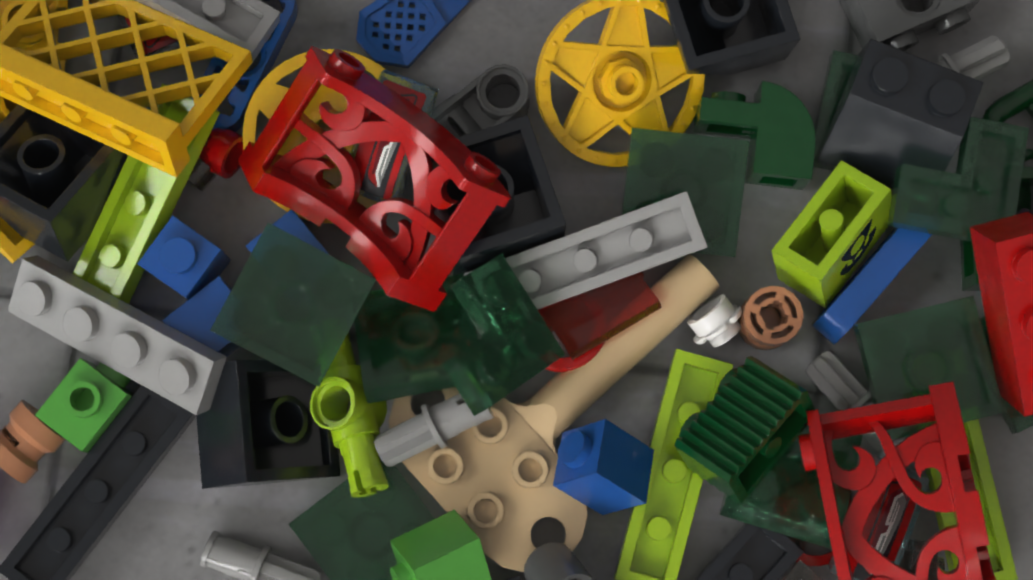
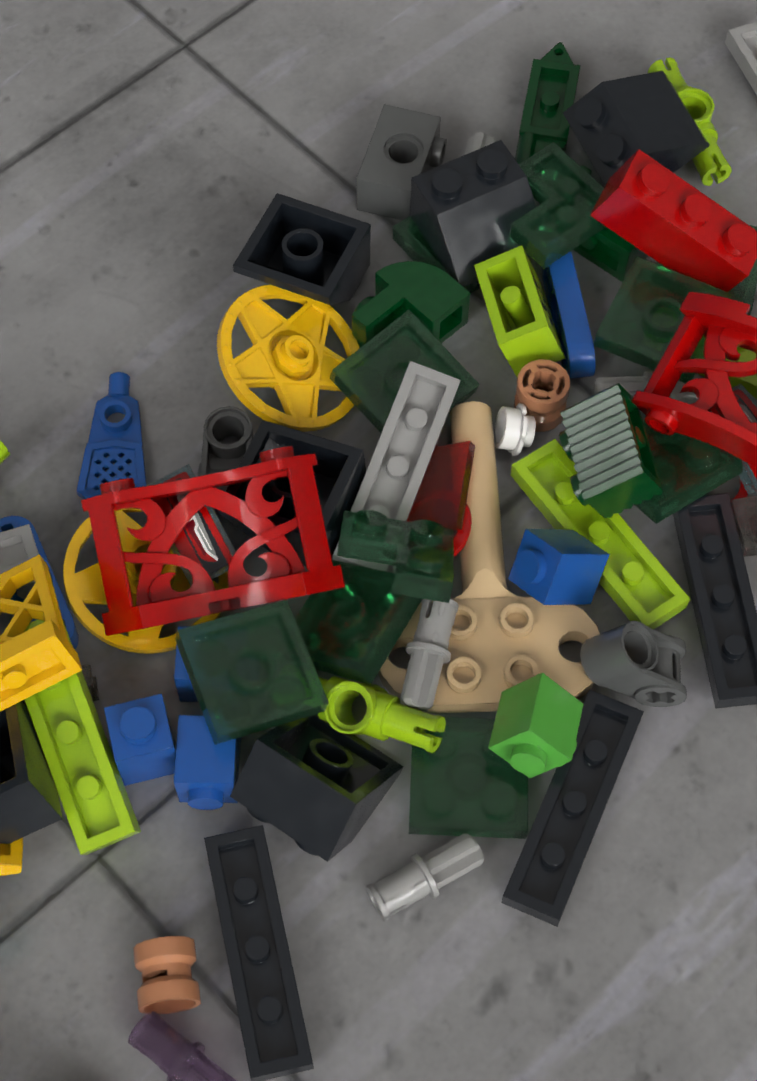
camera: 45 degrees left, 20 degrees down
(85, 403) = (184, 897): bright green brick -> none
(117, 334) = (150, 827): light grey plate -> none
(223, 152) = (90, 652): red hinge -> none

